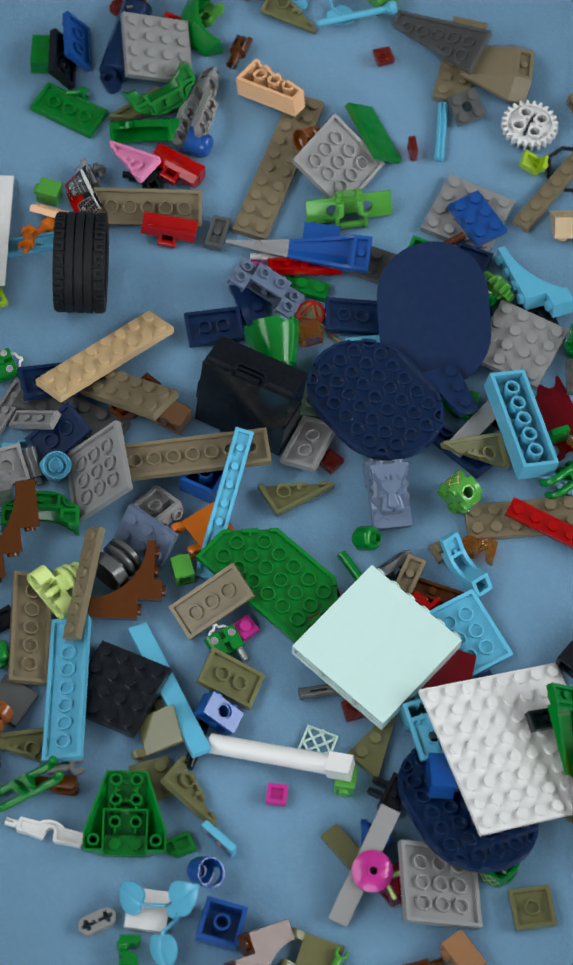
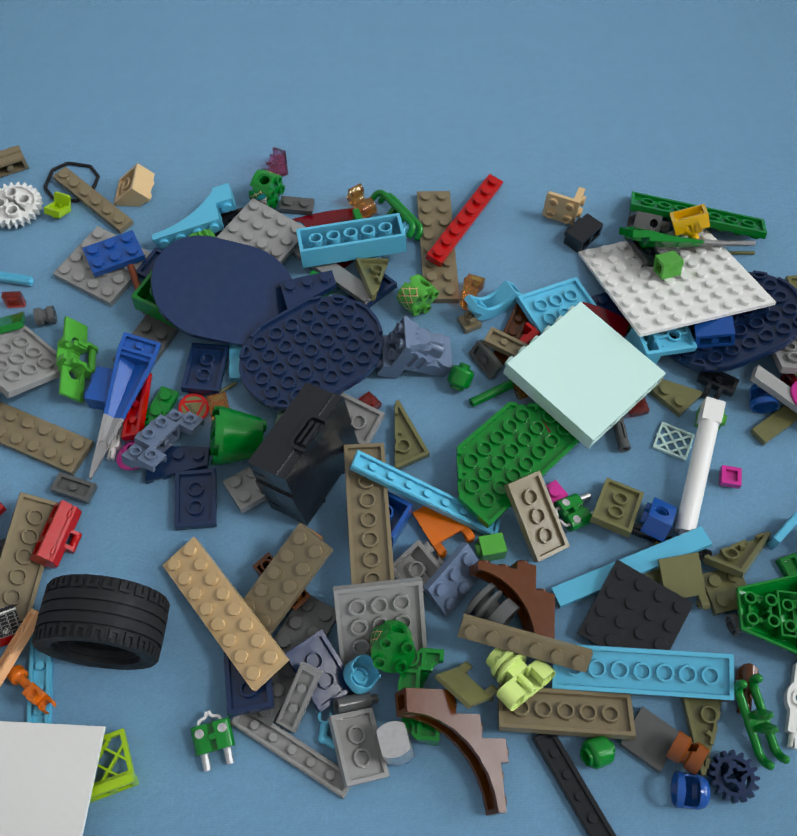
camera: 85 degrees left, 0 degrees up
(45, 537) = (465, 688): none -> olive flag
(76, 480) = (392, 647): none -> green brick
(397, 177) = (45, 315): none -> dark grey wheel
(525, 732) = (668, 265): none -> bright green brick

